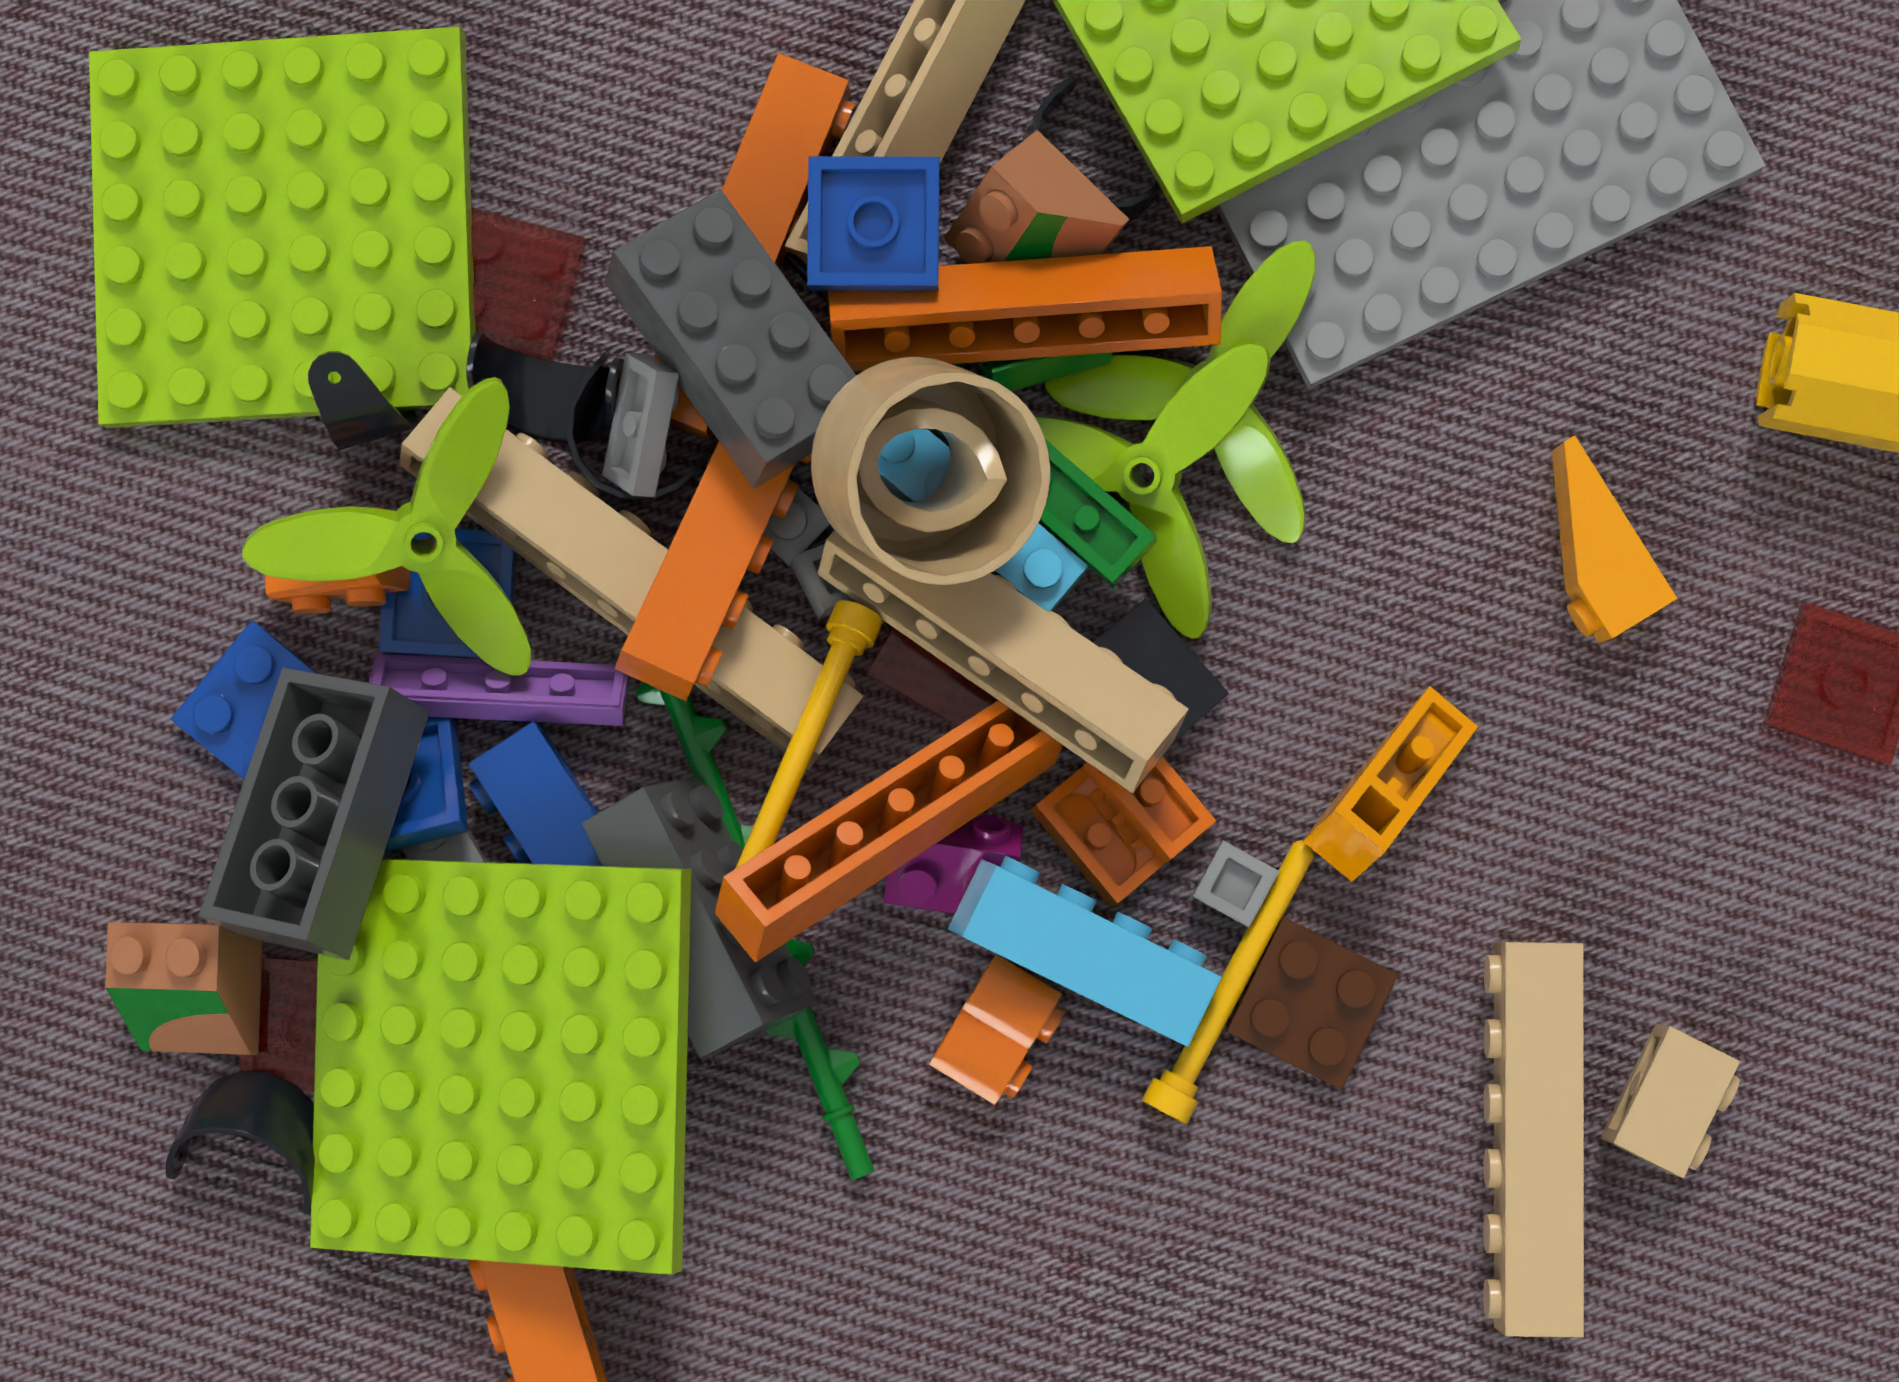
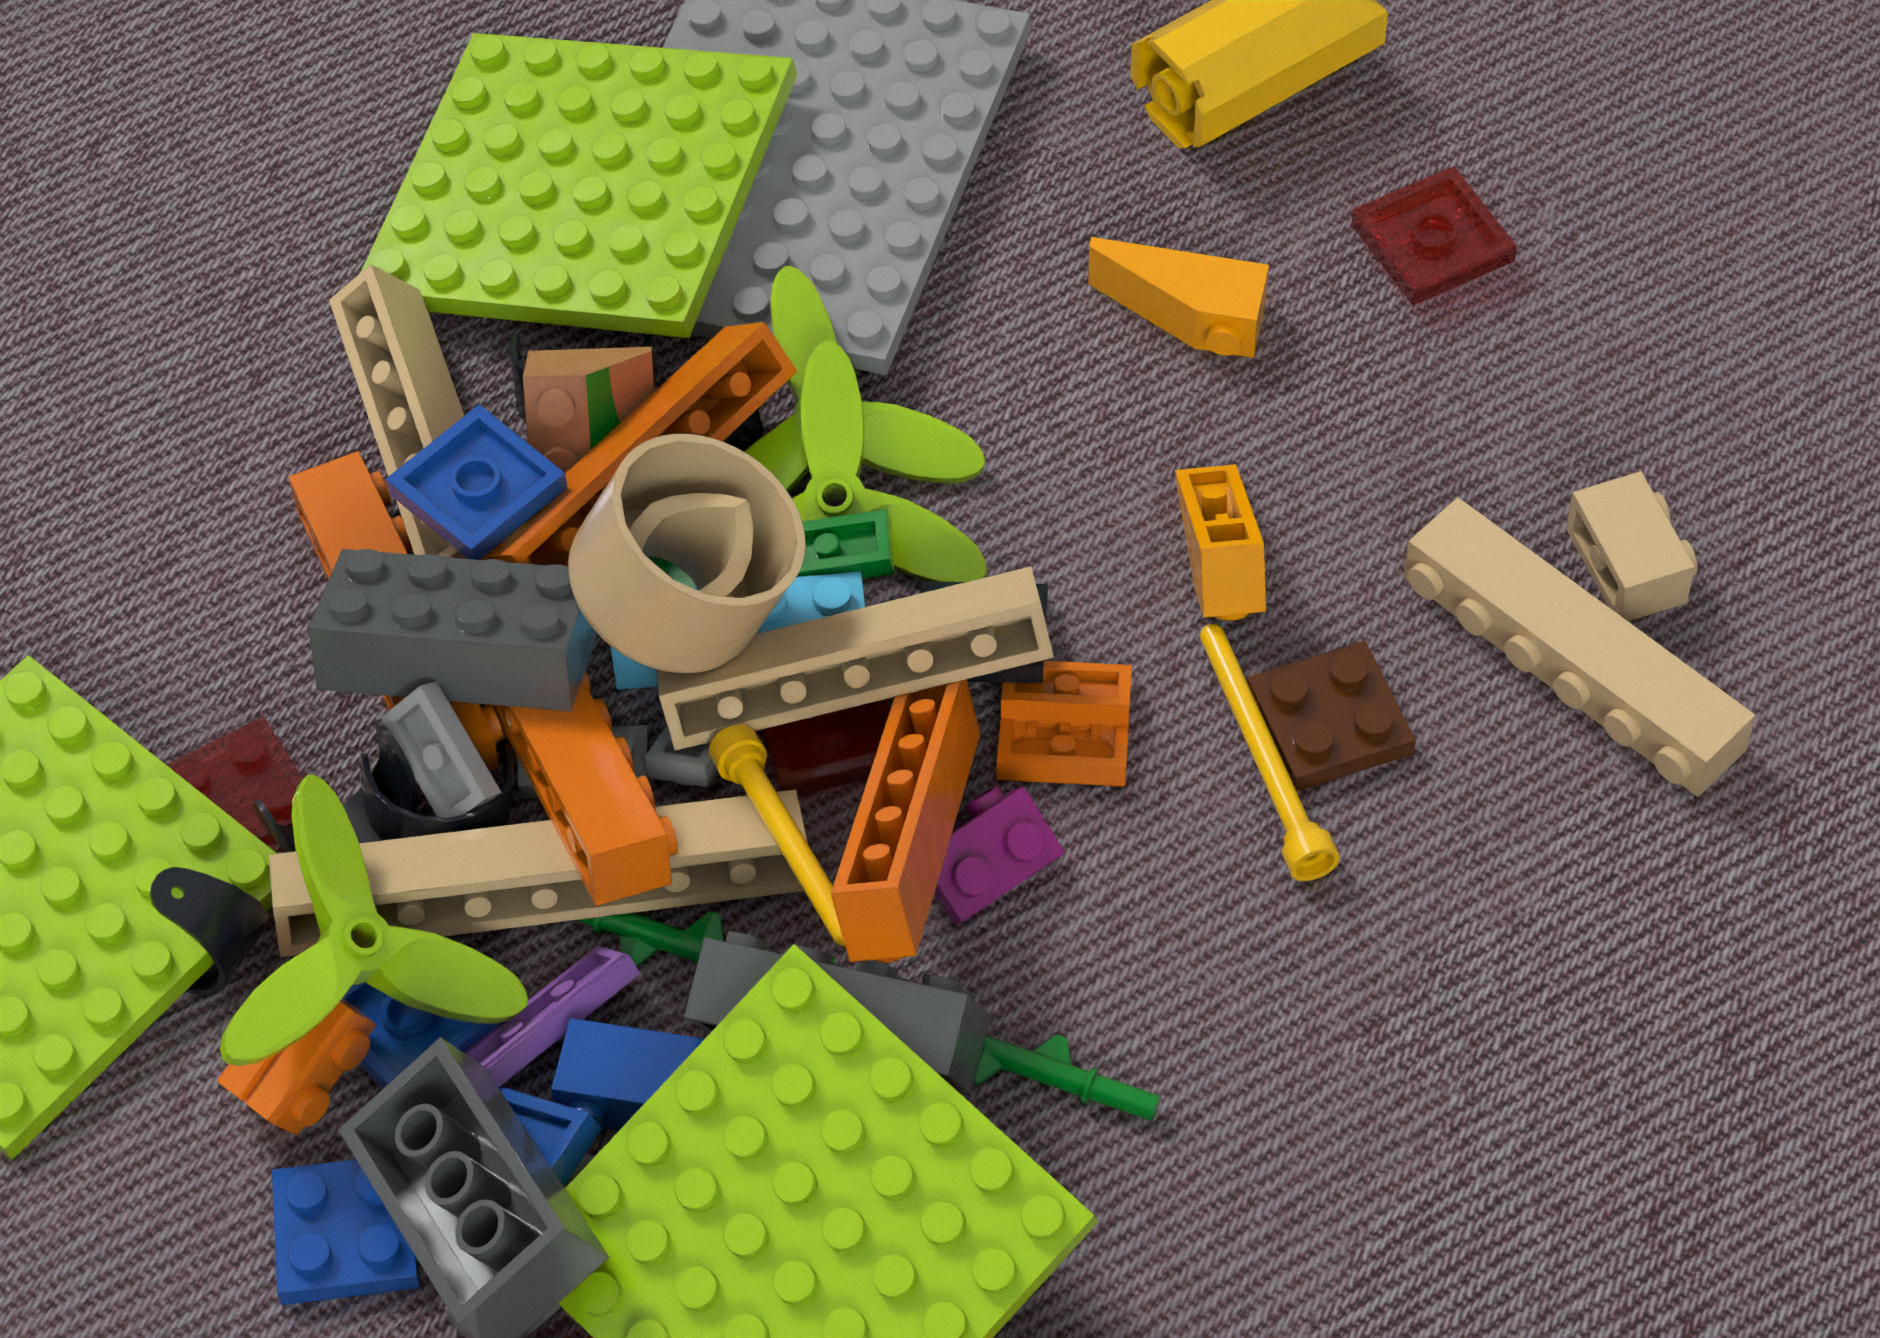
camera: 45 degrees left, 30 degrees down
(997, 1029) = (1137, 919): orange brick -> none
(1084, 951) = (1138, 801): medium azure brick -> none
(1235, 883) = (1190, 687): light grey plate -> none

